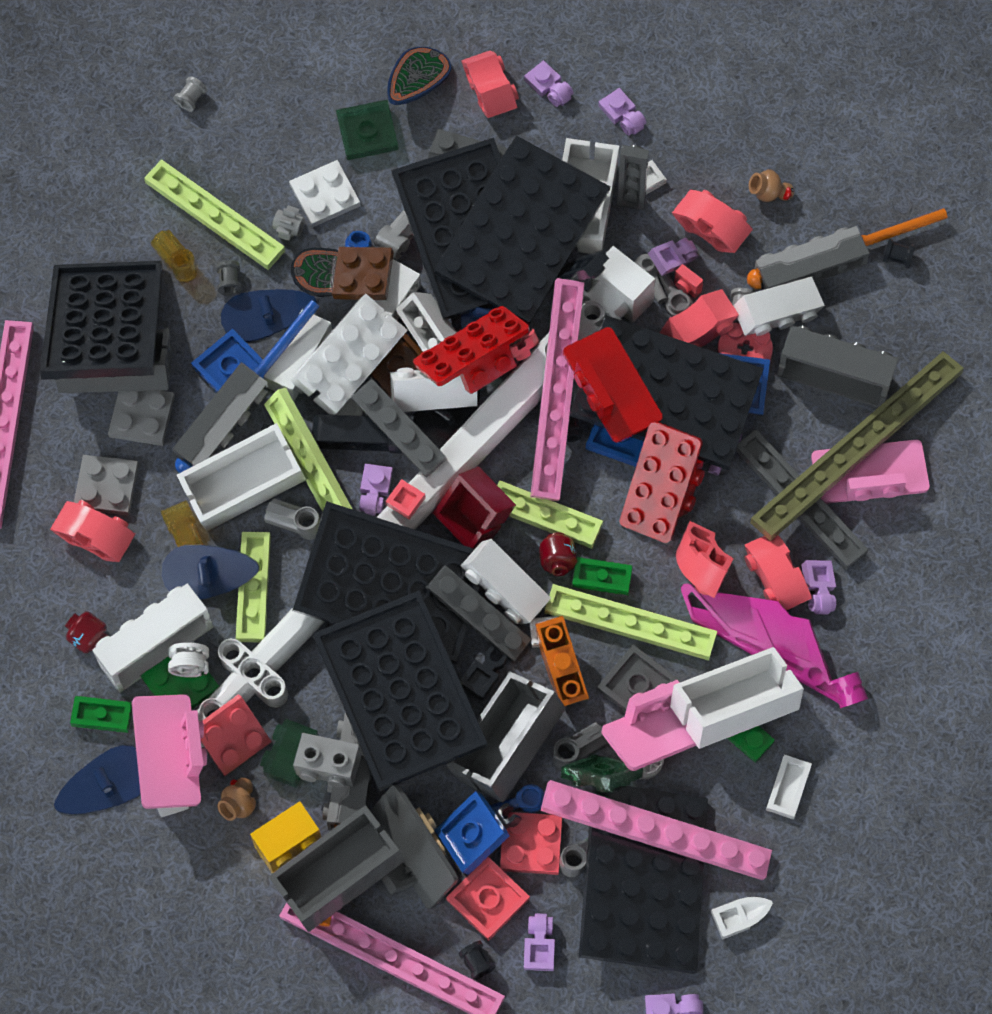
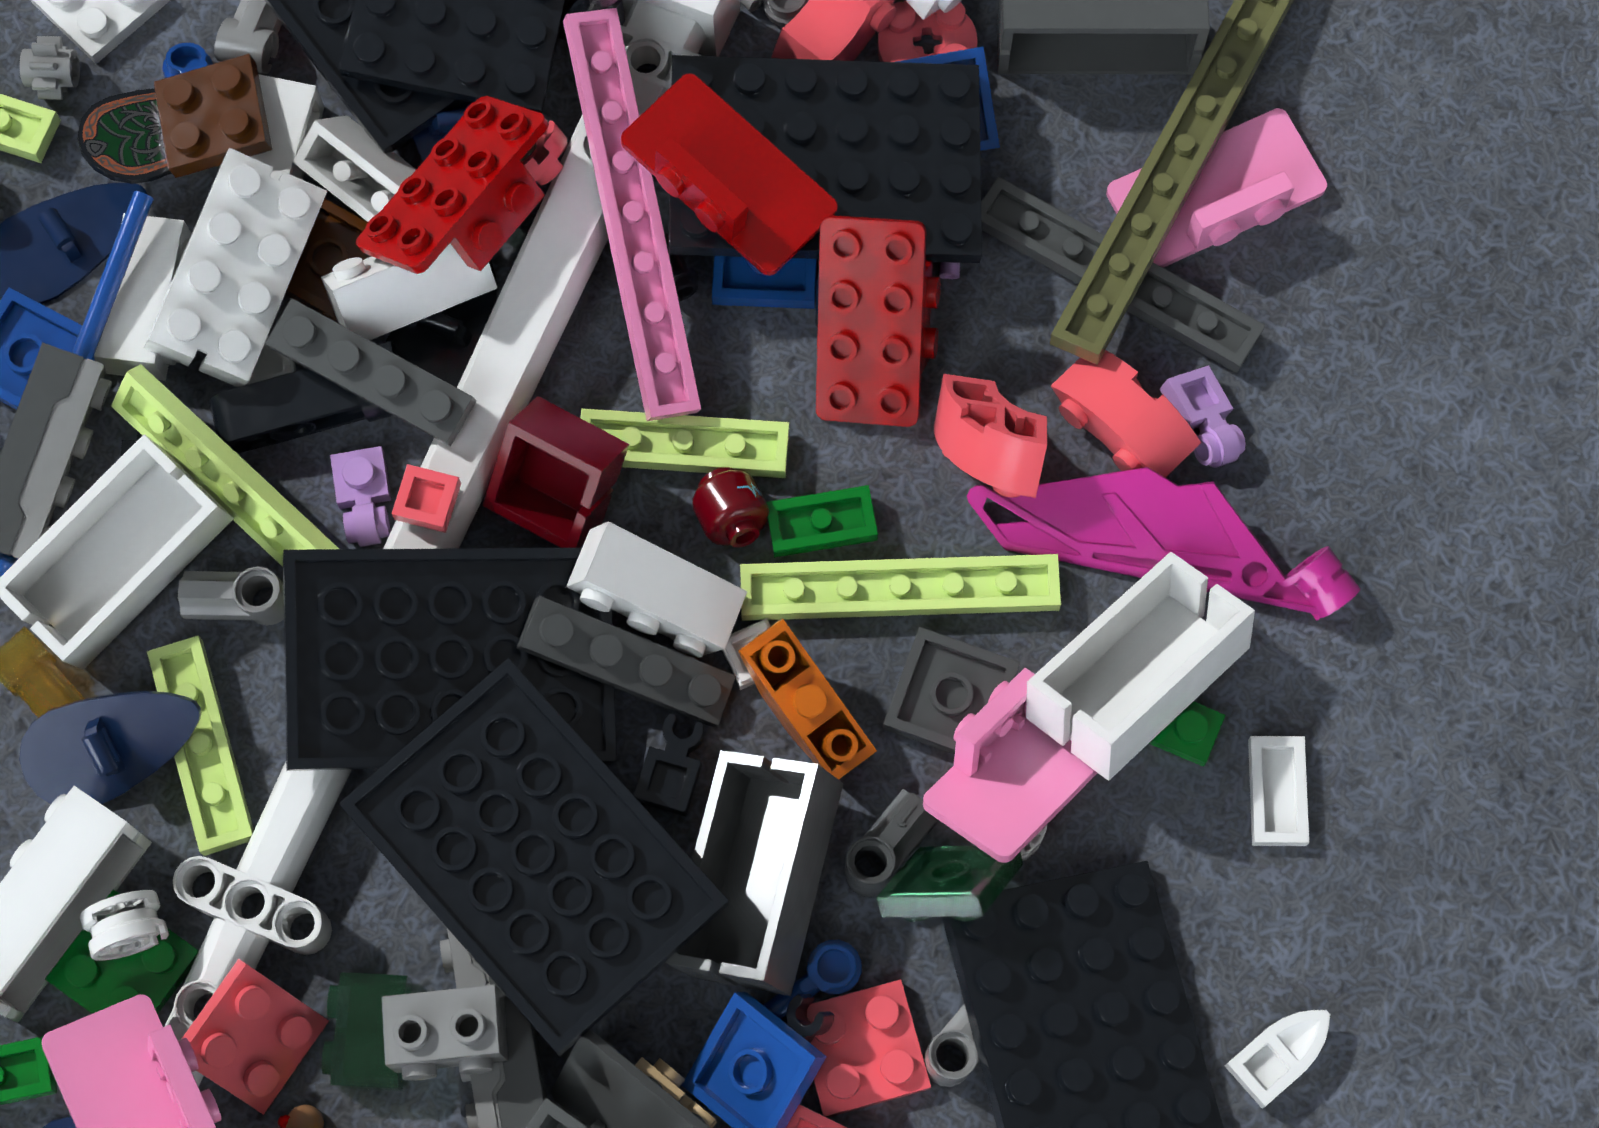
camera: 20 degrees left, 5 degrees up
(656, 830) = (1079, 955): bright pink plate -> none

